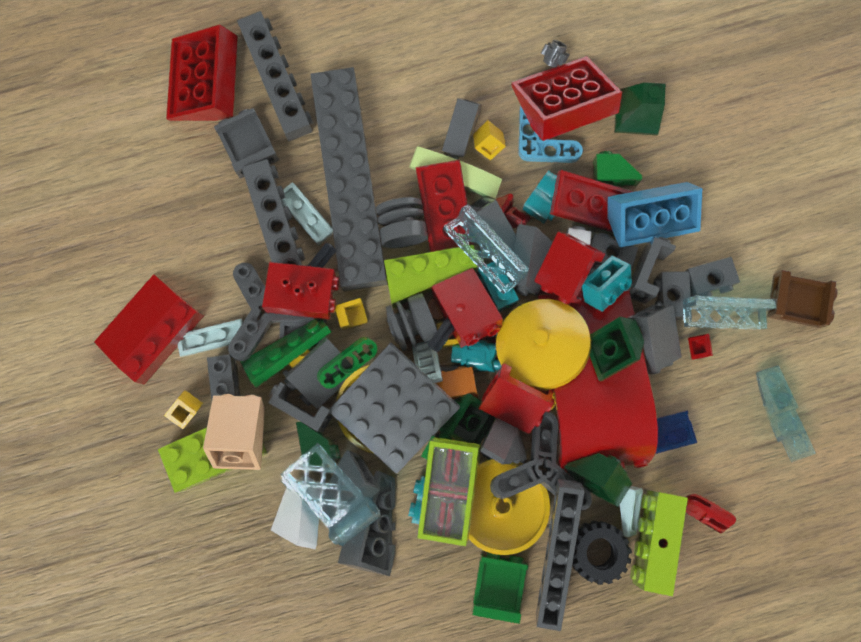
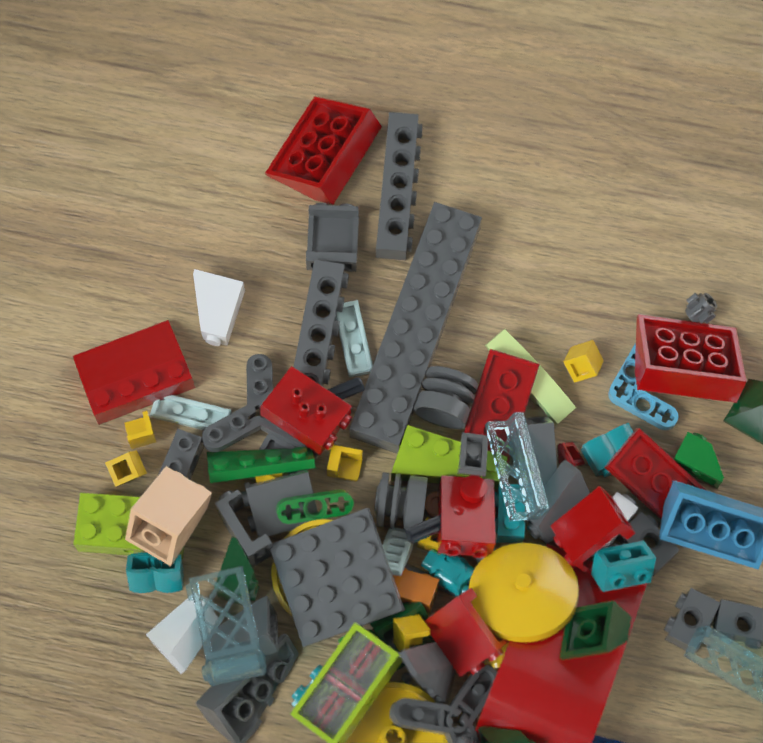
camera: 25 degrees right, 10 degrees down
(179, 373) = (140, 431): none -> yellow panel
(185, 242) = (217, 305): none -> white slope
(246, 483) = (149, 574): none -> teal brick
(448, 258) = (473, 455): none -> dark grey slope
(461, 128) = (561, 333): dark grey slope -> none
(462, 284) = (473, 489): none -> red tile
(471, 421) = (409, 631): none -> yellow panel
(506, 202) = (564, 433): red slope -> none
(640, 289) = (657, 593): dark grey panel -> none
(659, 336) = (649, 651): dark grey panel -> none
(700, 346) = (693, 689): red slope -> none

